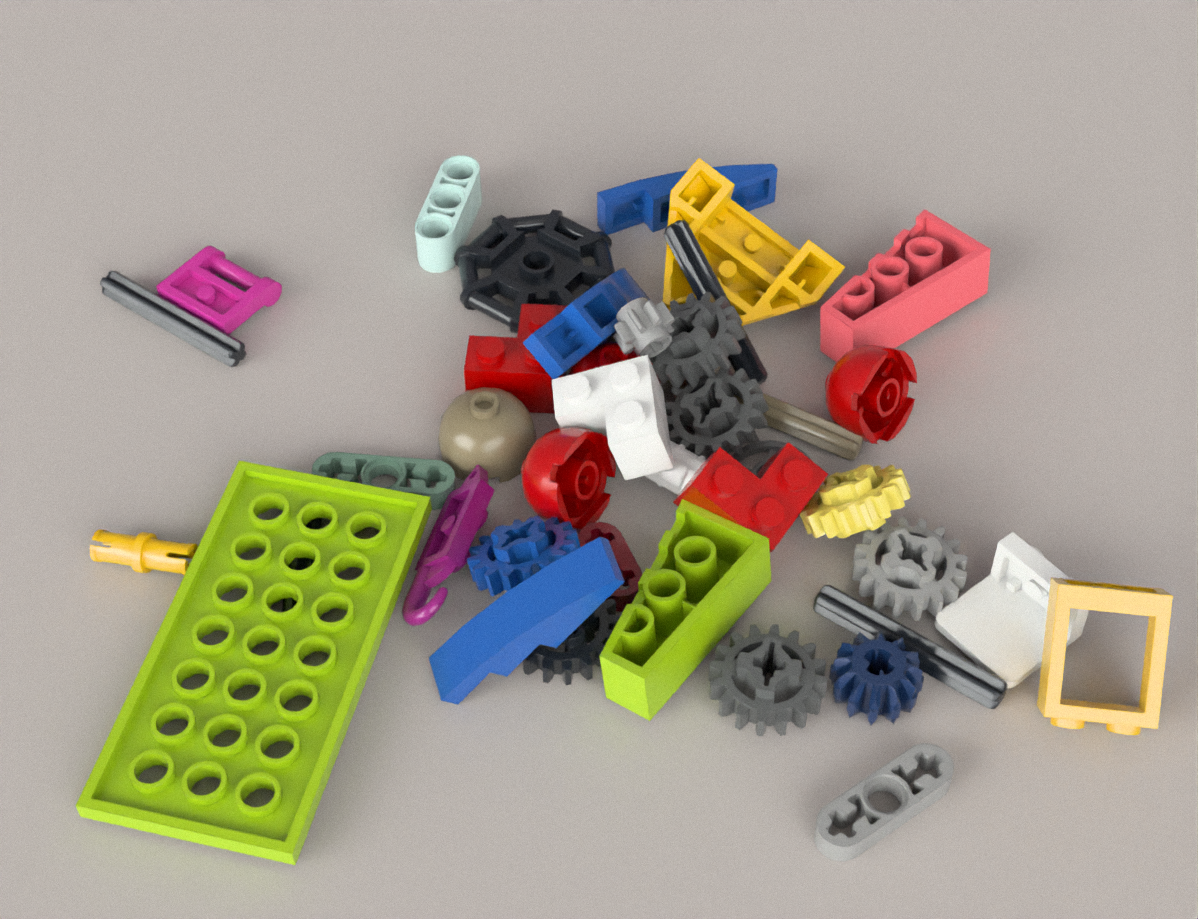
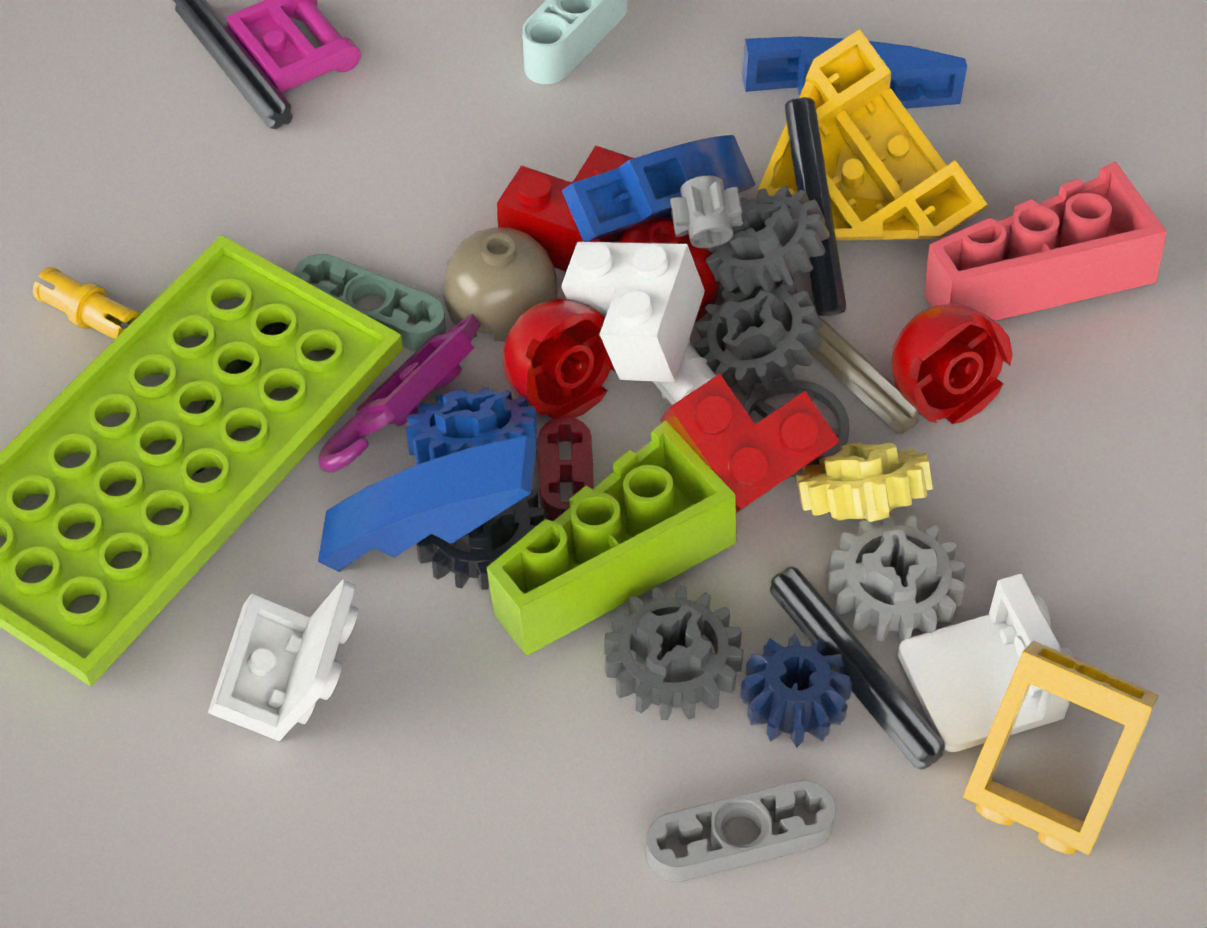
camera: 20 degrees right, 5 degrees up
(462, 792) = (282, 662): none -> white bracket
(557, 246) = (622, 80): black plate -> none

